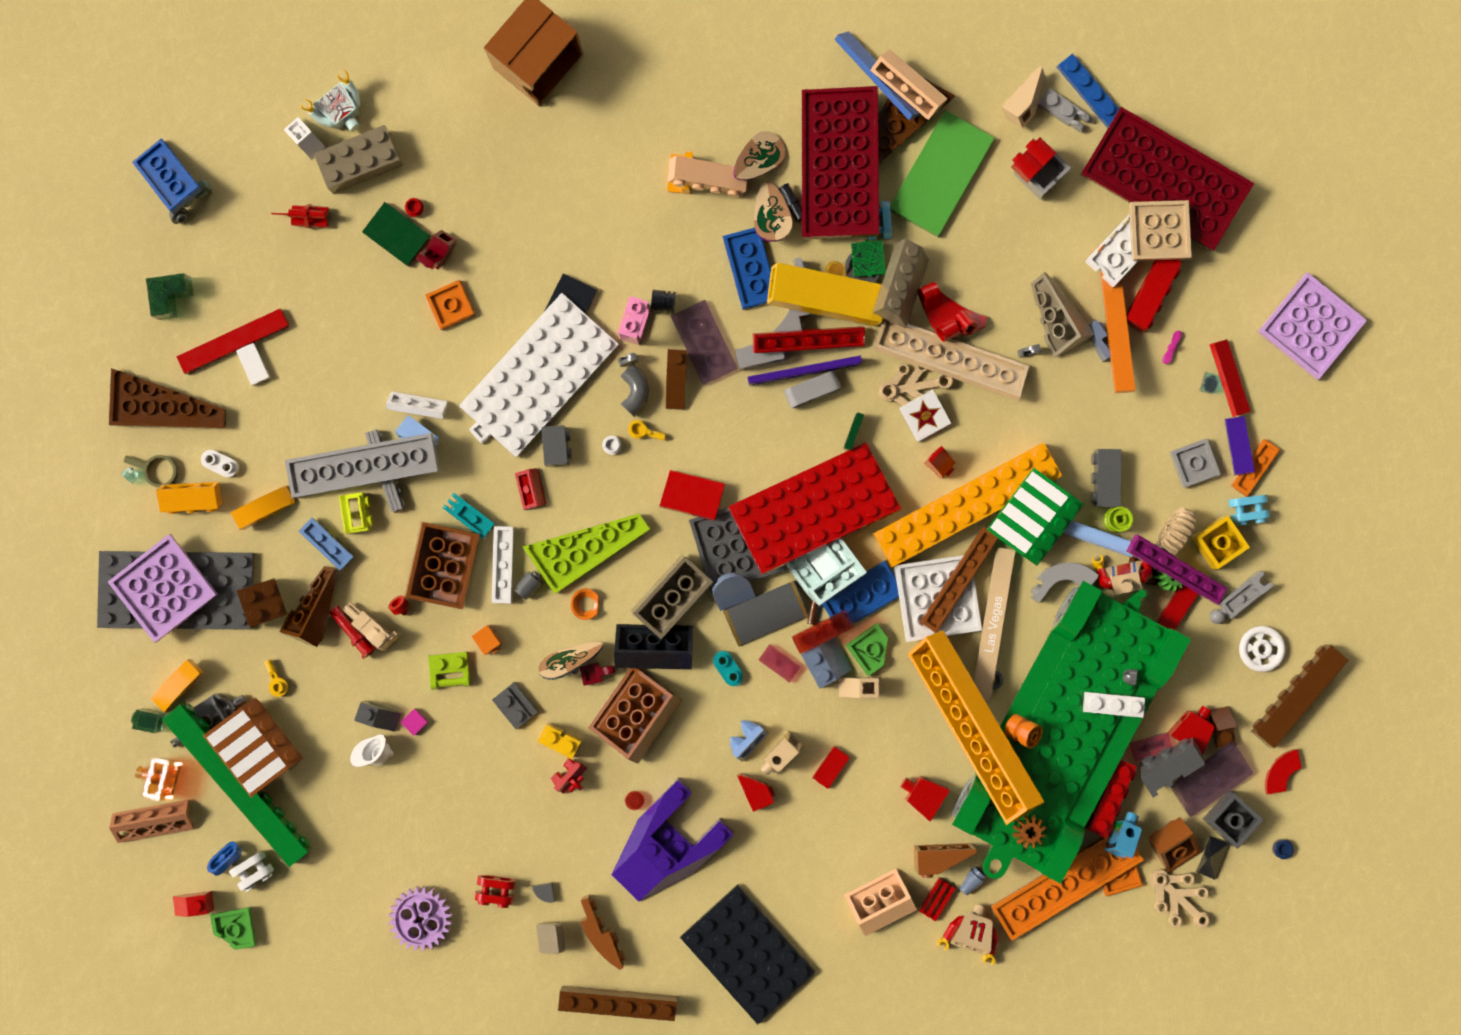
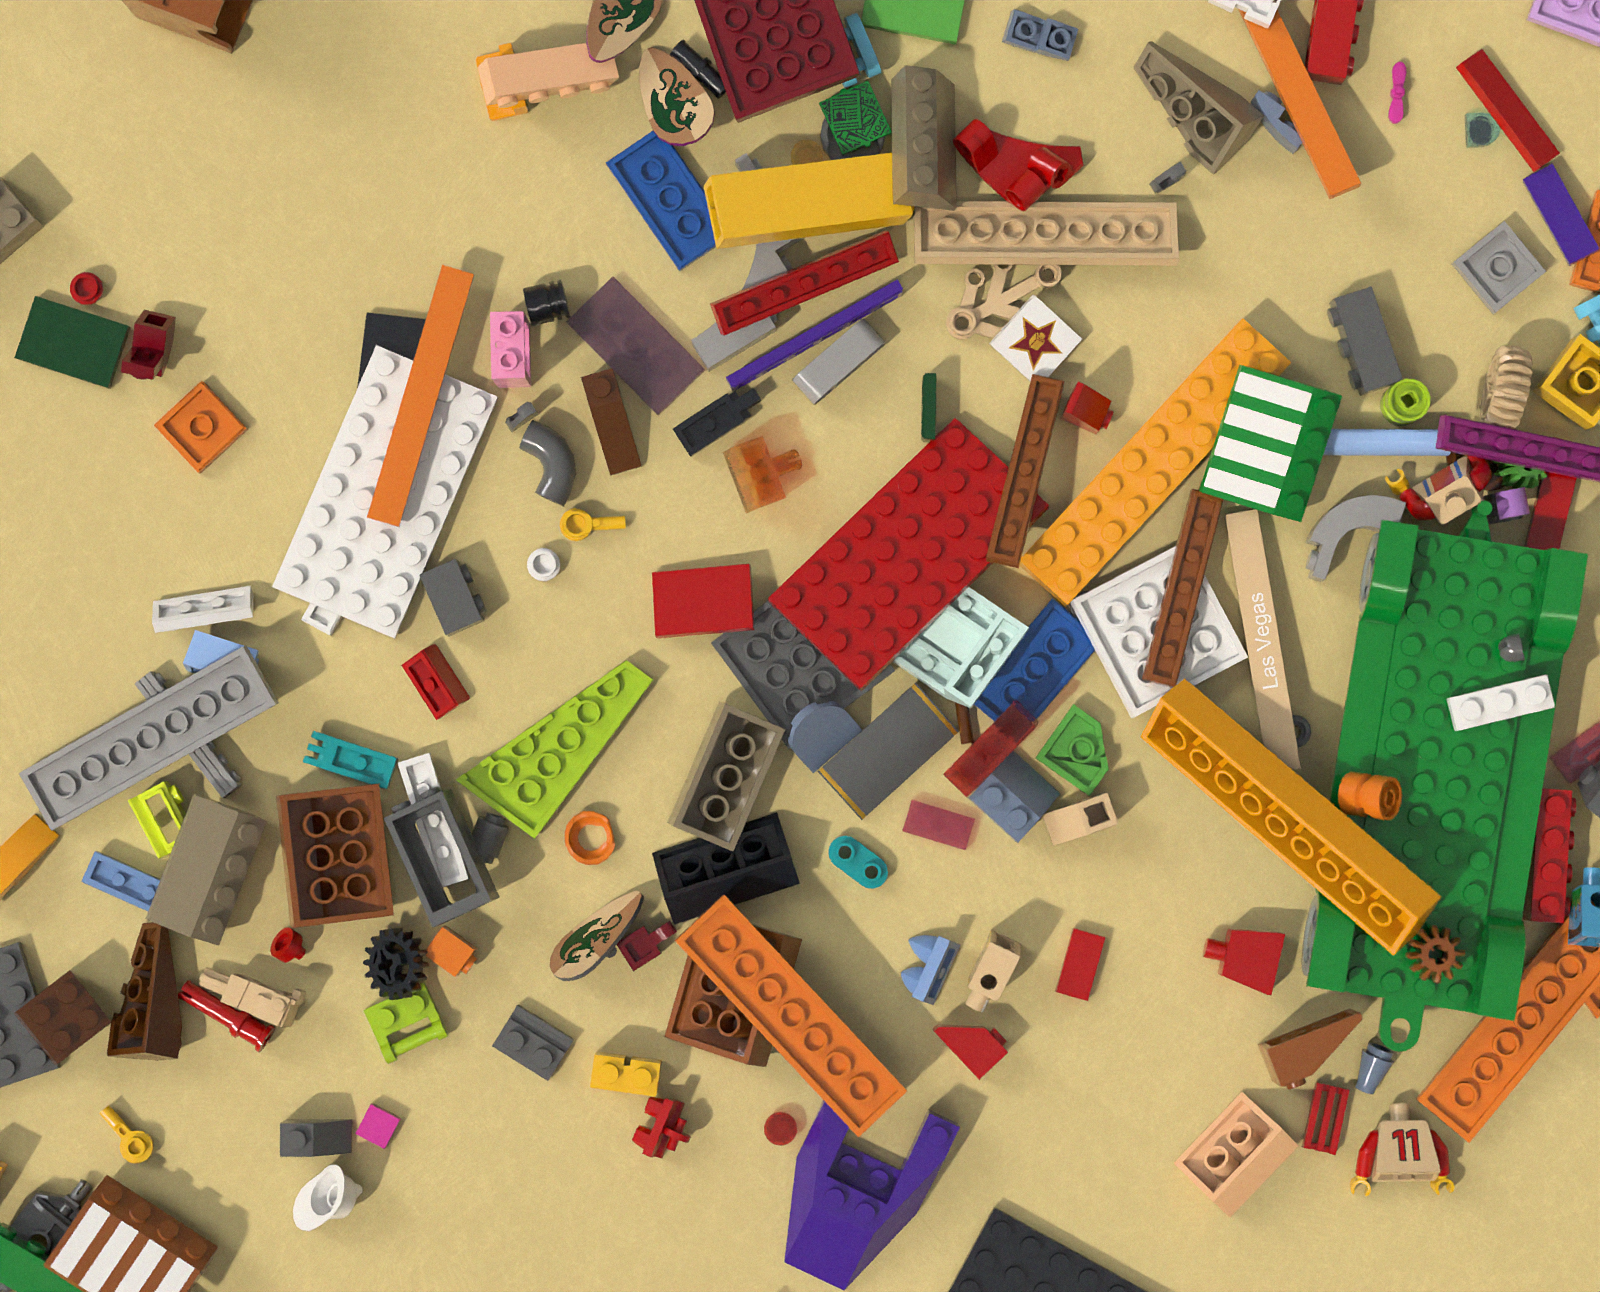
camera: 20 degrees left, 0 degrees up
(368, 548) = (206, 869): none -> dark tan slope
(454, 636) = (396, 963): none -> black gear
(486, 587) = (419, 866): none -> dark grey piece
(576, 329) = (420, 396): none -> orange tile
(661, 741) = (791, 1015): none -> orange plate
(733, 398) = (715, 420): none -> black hinge
(746, 435) = (758, 473): none -> clear orange brick
(894, 485) = (1025, 471): none -> dark orange tile
(985, 248) = (1040, 35): none -> sand blue slope
(1154, 596) = (1507, 505): none -> medium lavender leg

